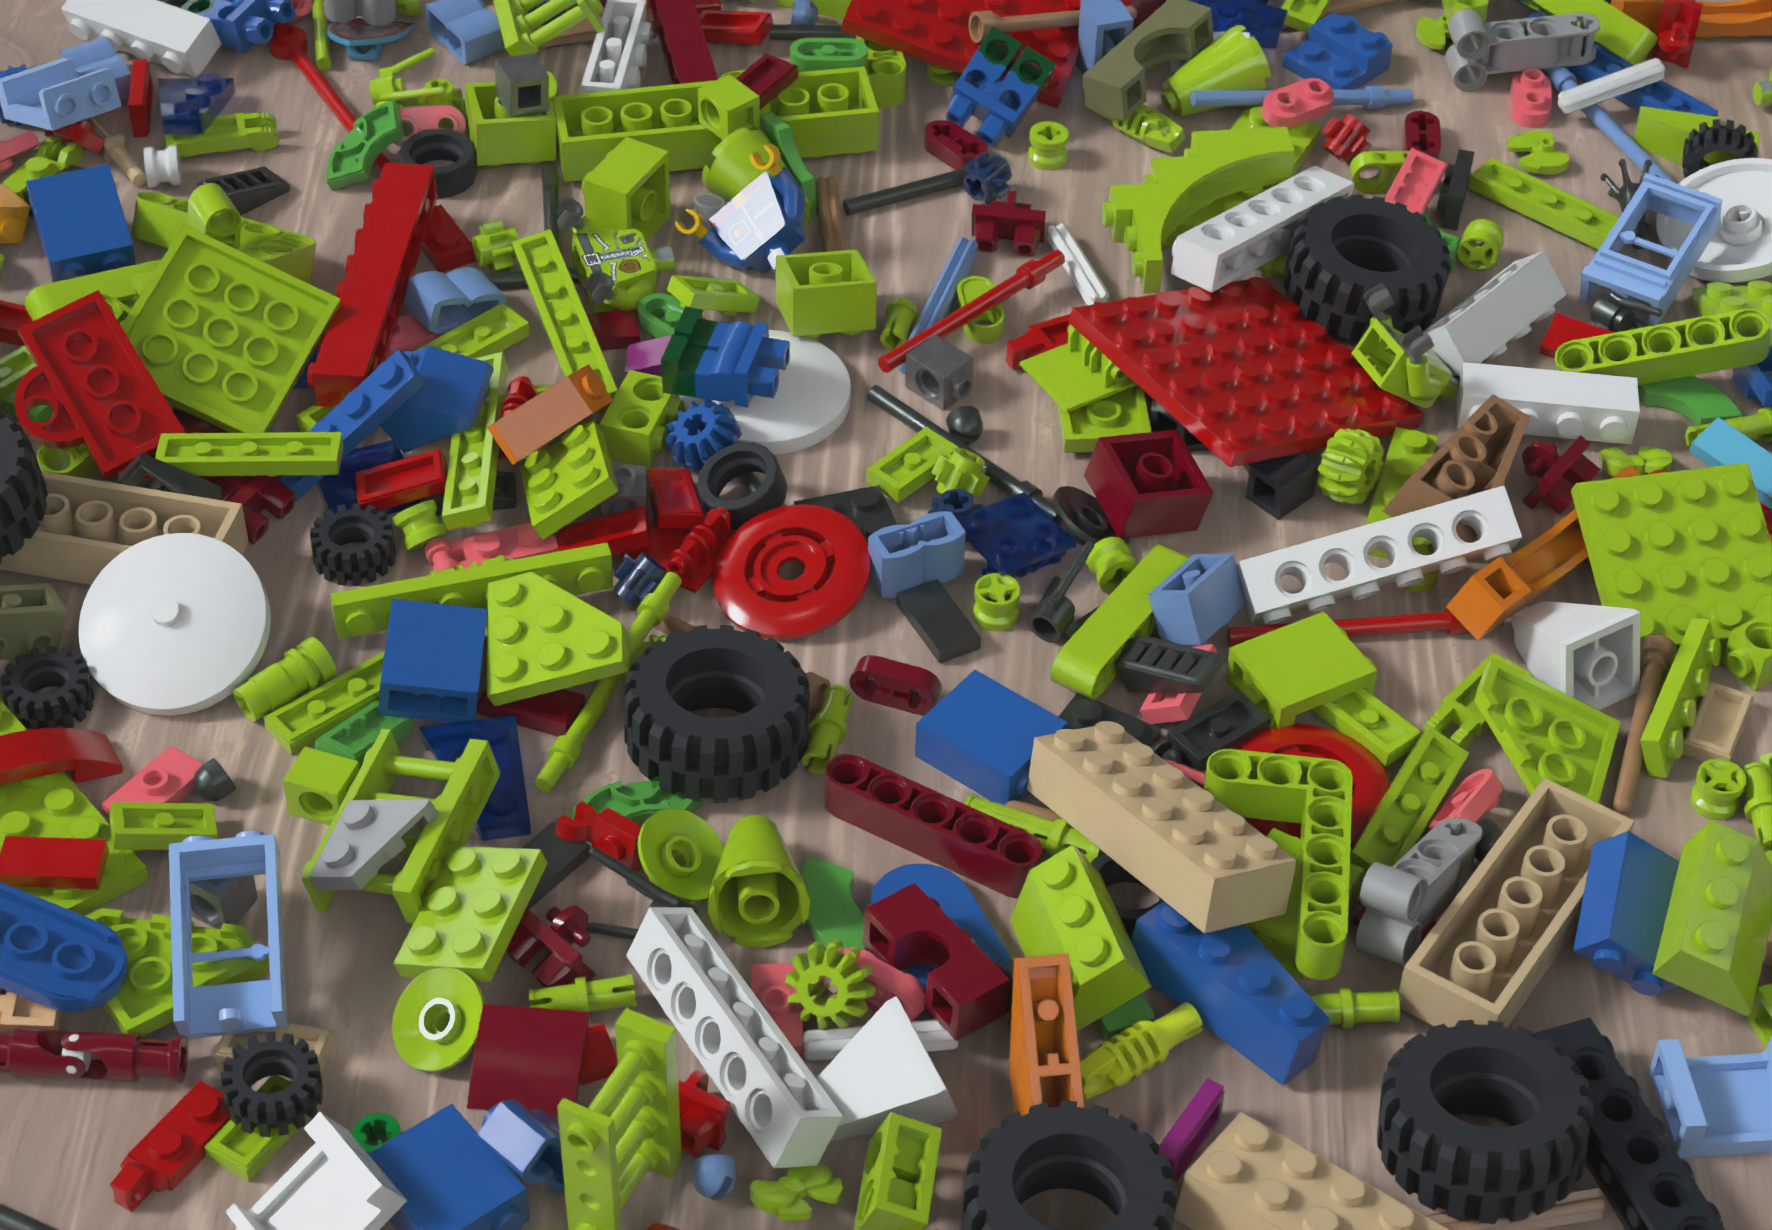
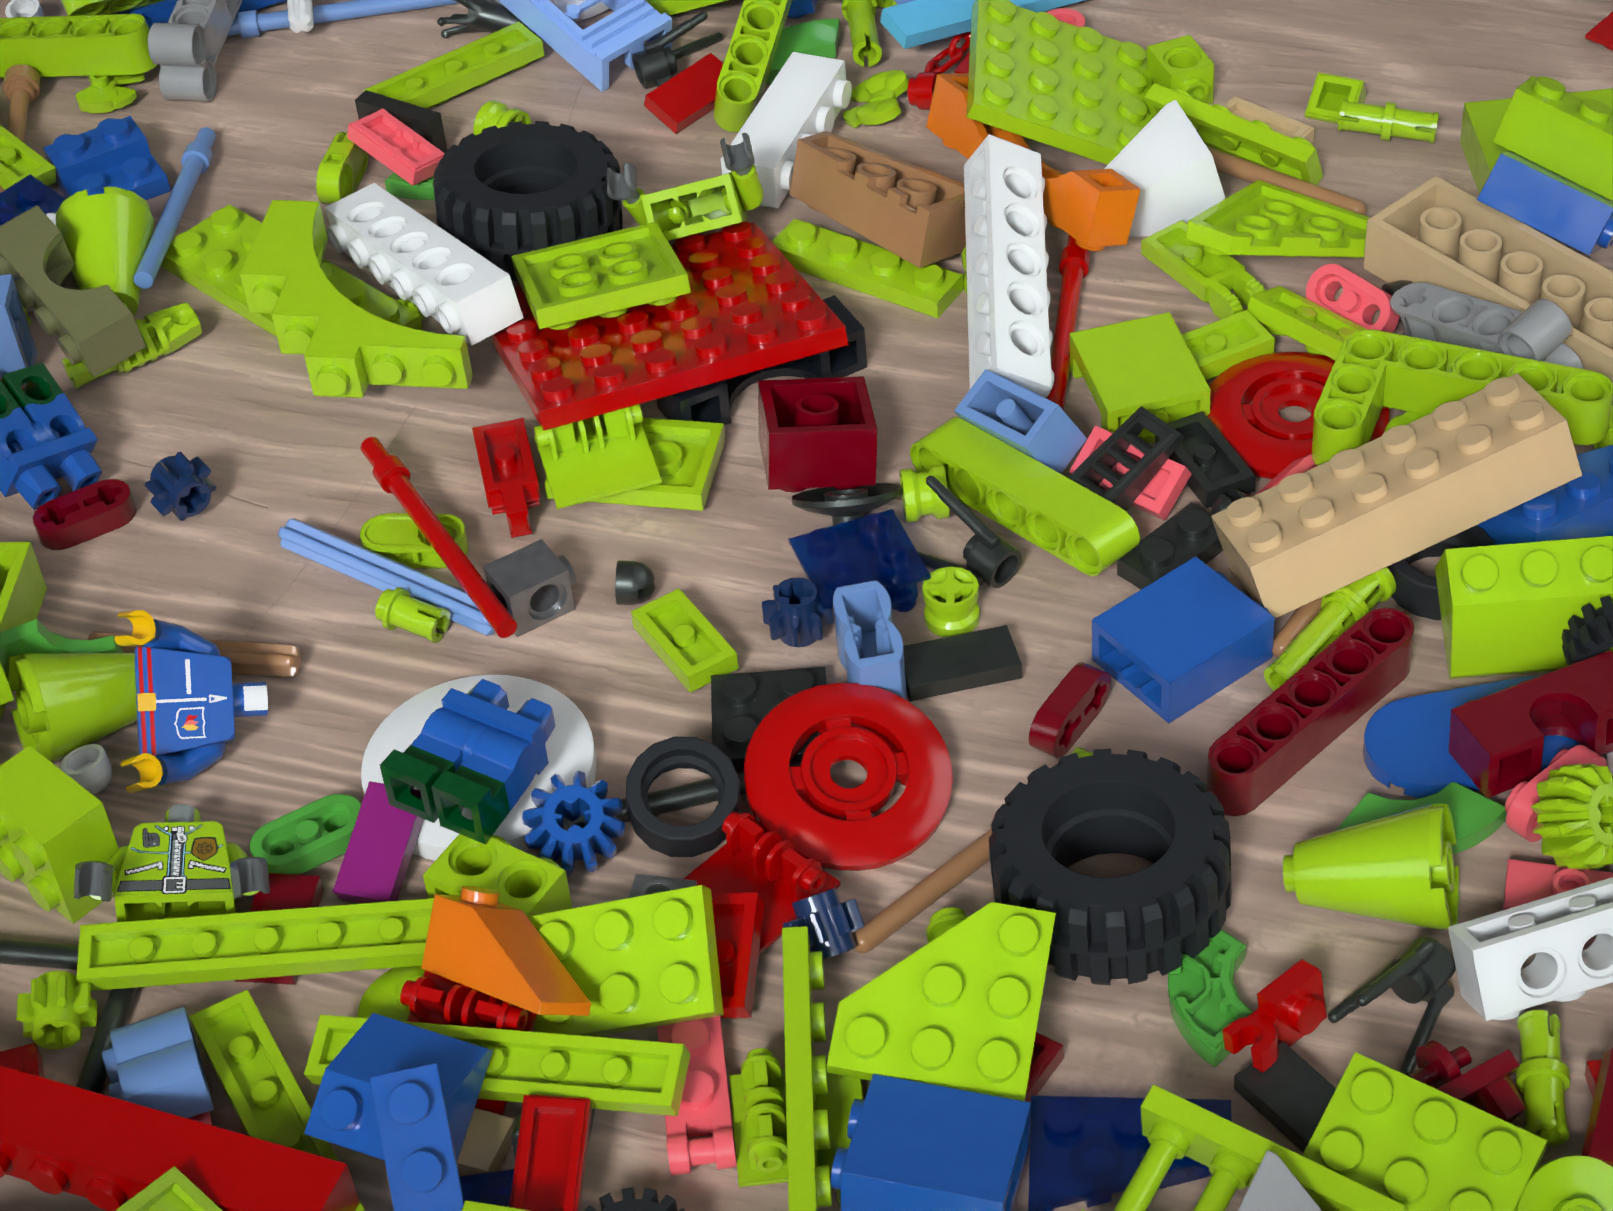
camera: 70 degrees left, 0 degrees up
(420, 525) = (636, 1158): lime wheel -> none
(568, 747) = (1100, 1049): lime bar -> none
(674, 498) = (704, 863): red tile -> none
(680, 853) = (1327, 944): lime dish -> none
(715, 294) = (287, 779): lime plate -> none
(826, 293) = (350, 658): lime brick -> none
(904, 192) = (145, 552): pearl dark grey bar -> none
(961, 471) = (731, 593): lime gear -> none
(997, 475) = (768, 554): pearl dark grey bar -> none
(1009, 222) = (271, 478): dark red hips -> none
(1048, 145) = (137, 428): lime wheel -> none
(1078, 265) = (398, 441): white axle -> none
(1270, 318) = (600, 276): none -> lime plate
(1297, 103) = (200, 202): coral plate -> none
(1346, 138) = (271, 181): red gear -> none
(1350, 466) = (841, 270): lime gear -> none
(1428, 139) = (289, 140): dark red beam -> none
(1497, 313) = (631, 131): white brick -> none
(1530, 98) = (262, 53): coral plate -> none
(1543, 157) = (373, 62): lime piece -> none
(1544, 462) = (892, 139): dark red hips -> none
(1718, 789) = (1356, 142): lime wheel -> none

